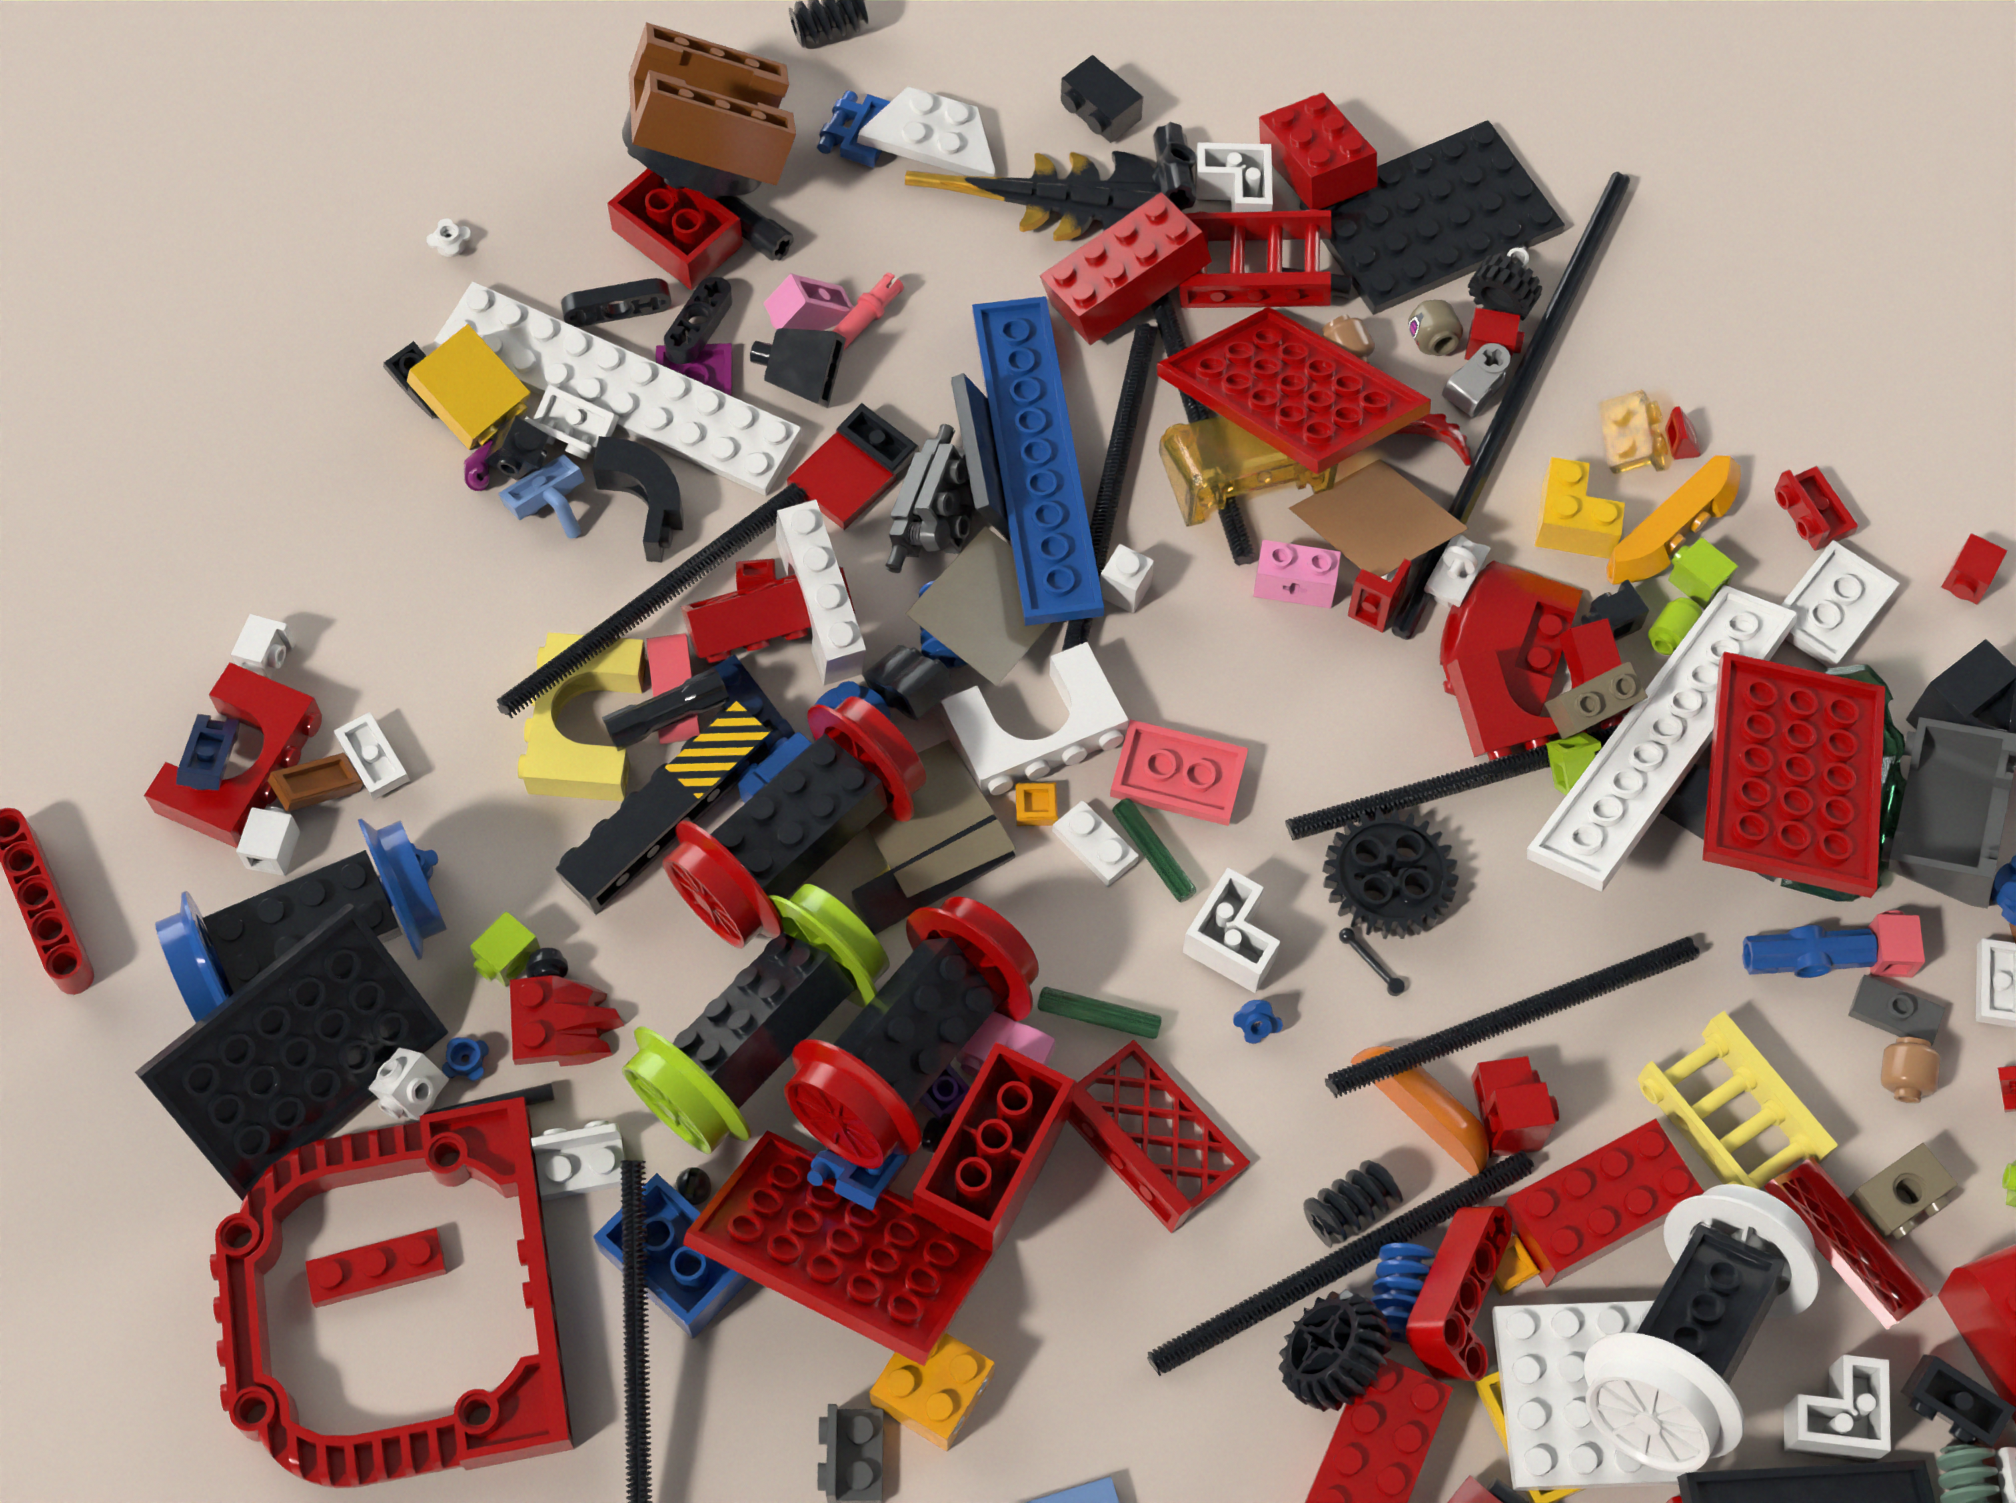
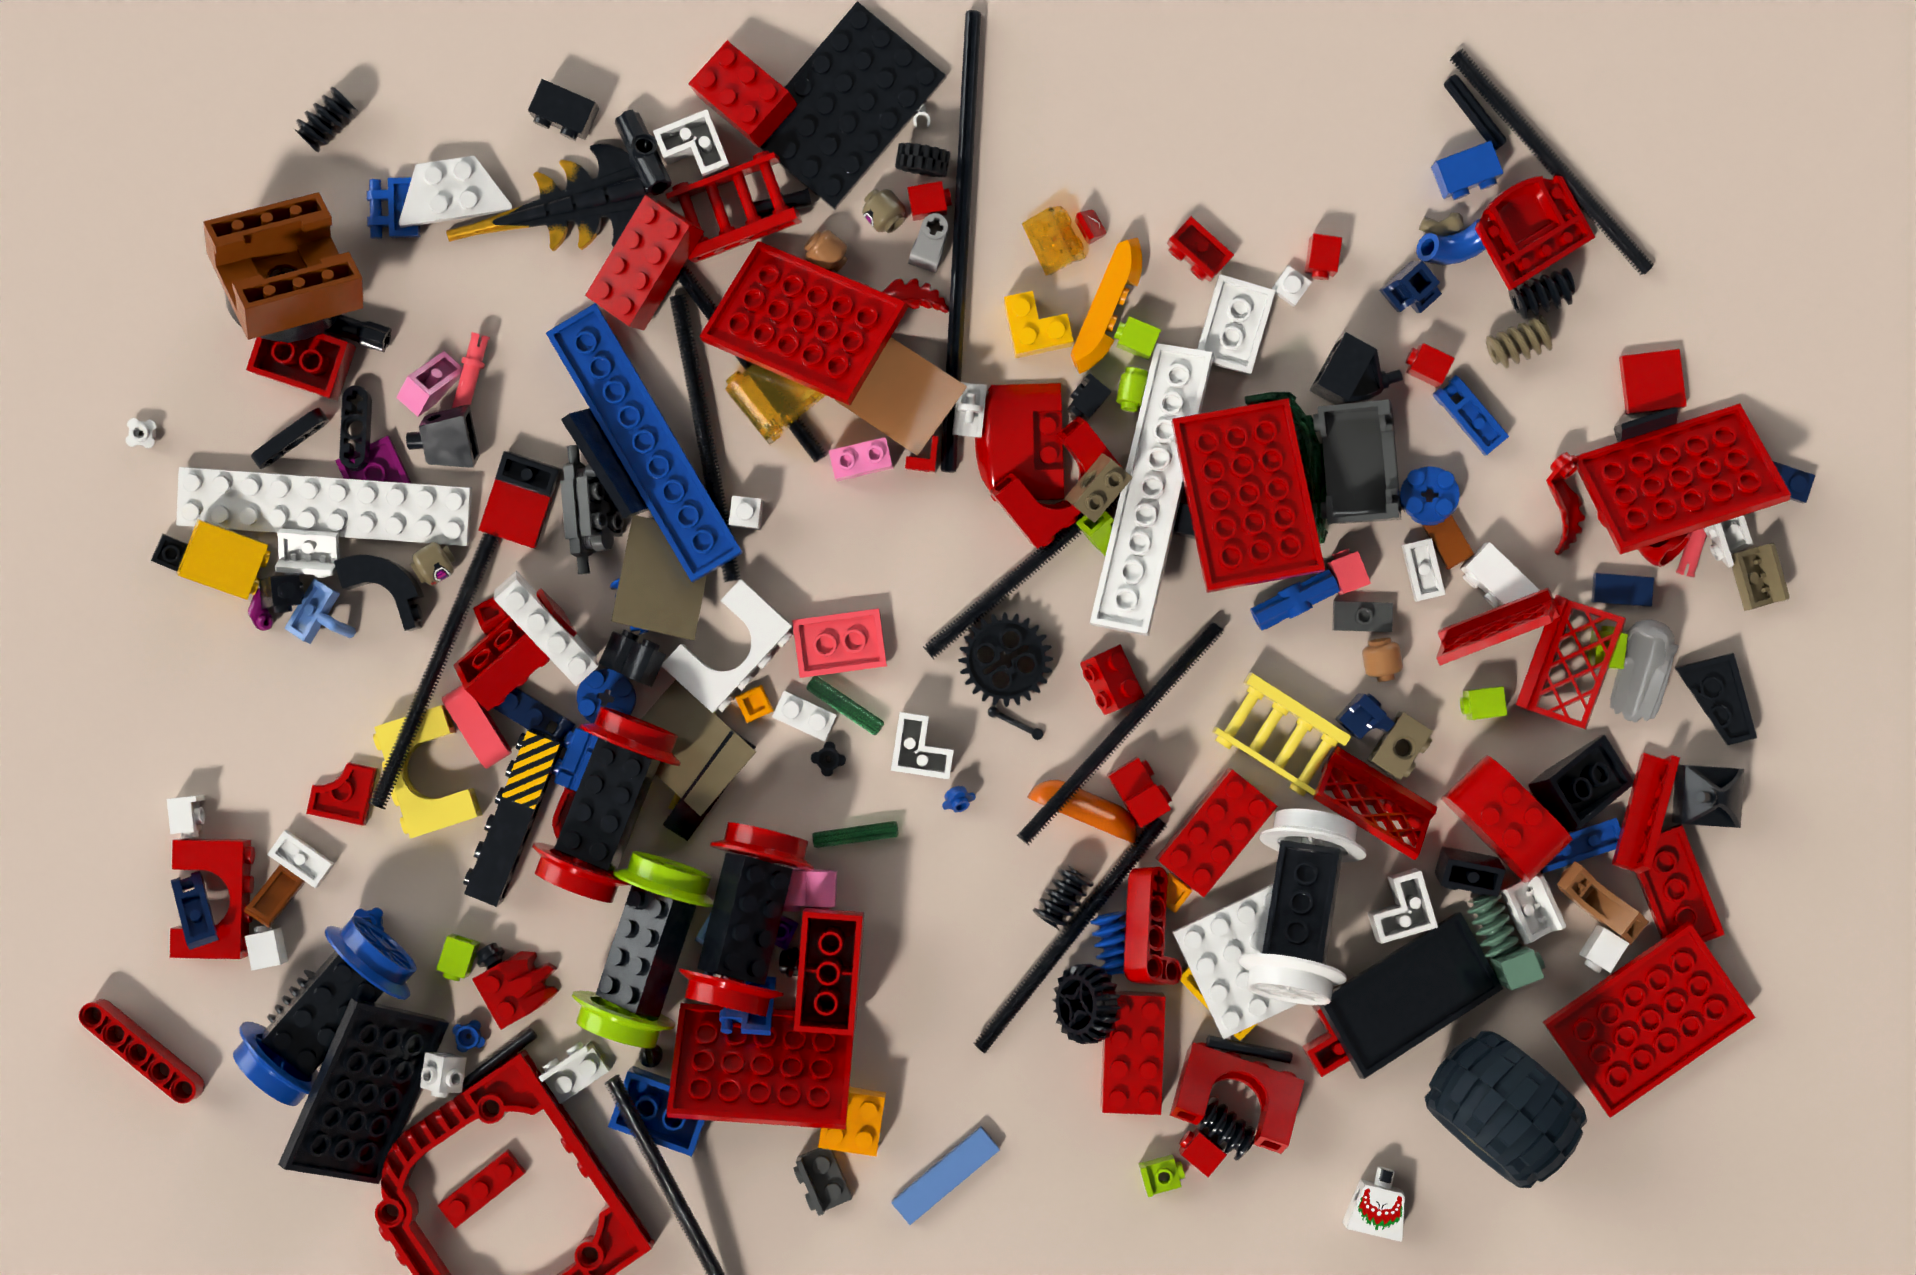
camera: 20 degrees left, 25 degrees up
(462, 711) = (346, 797): none -> red tile
(638, 721) = (468, 770): black axle -> none
(714, 490) = (433, 563): none -> dark tan head
(1103, 894) = (820, 759): none -> black plate
(1129, 1160) = (910, 924): red fence -> none
(1522, 953) = (1112, 680): none -> red bracket
(1865, 1133) = (1364, 715): none -> dark blue brick
(1920, 592) = (1291, 286): none -> white plate

